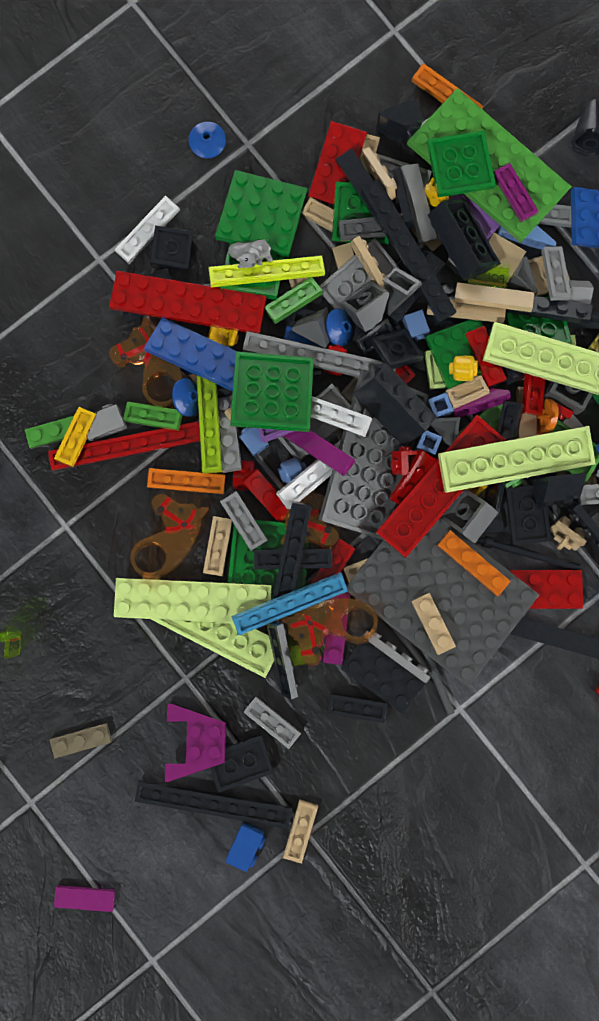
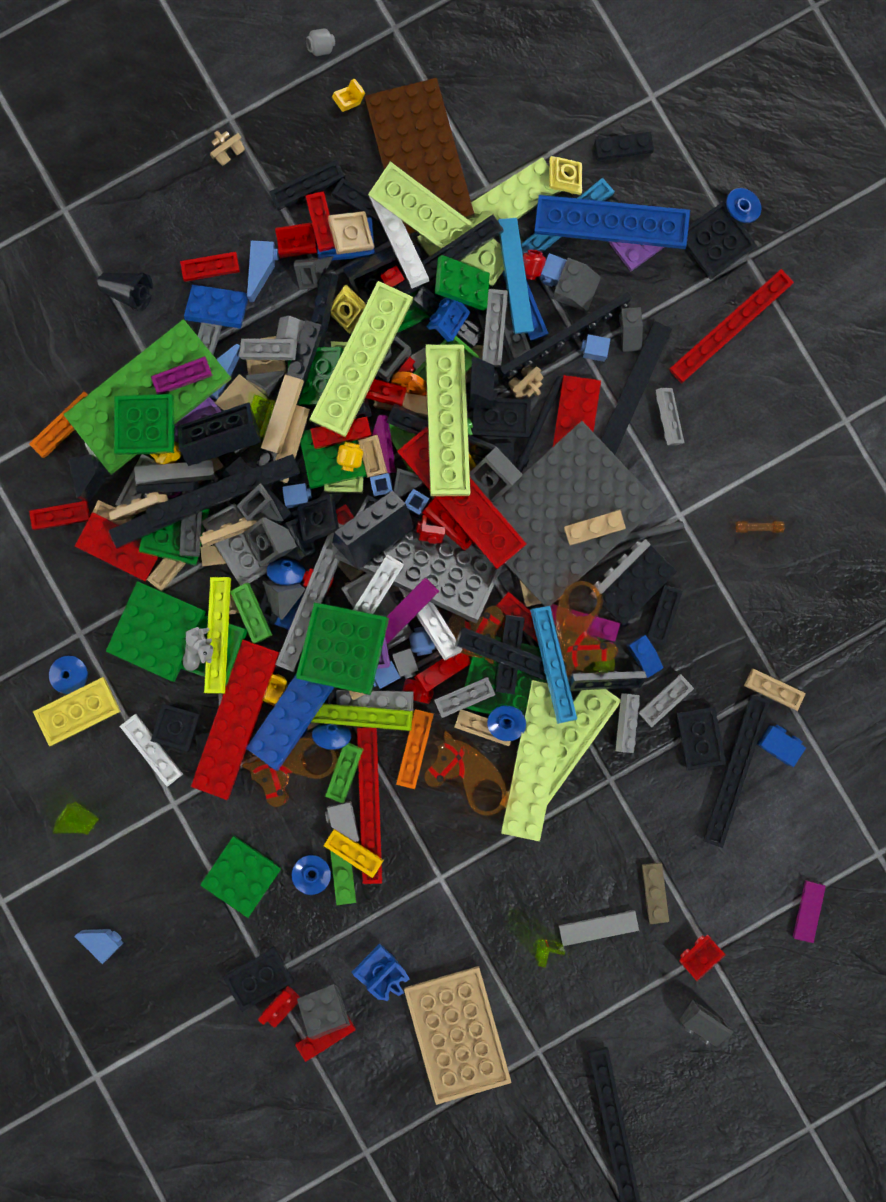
camera: 80 degrees left, 0 degrees up
(23, 796) = (701, 957): none -> red bracket
(38, 689) = (598, 928): none -> light grey tile
(39, 334) = (241, 876): none -> green plate
(41, 396) = (308, 884): none -> blue dish
(70, 168) = (75, 820): none -> clear neon green slope
(173, 153) = (76, 711): none -> light yellow plate
(204, 742) = (676, 770): magenta wing -> none
(218, 566) = (506, 730): none -> blue dish
(243, 687) = (627, 723): none -> light grey plate
(268, 458) = (405, 663): none -> light grey brick
(313, 695) = (645, 655): none -> blue slope
(358, 104) = (59, 515): none -> red plate
(464, 808) = (744, 526): none -> clear orange bar
(473, 563) = (542, 479): orange plate -> none
(558, 683) = (669, 416): none -> light grey plate

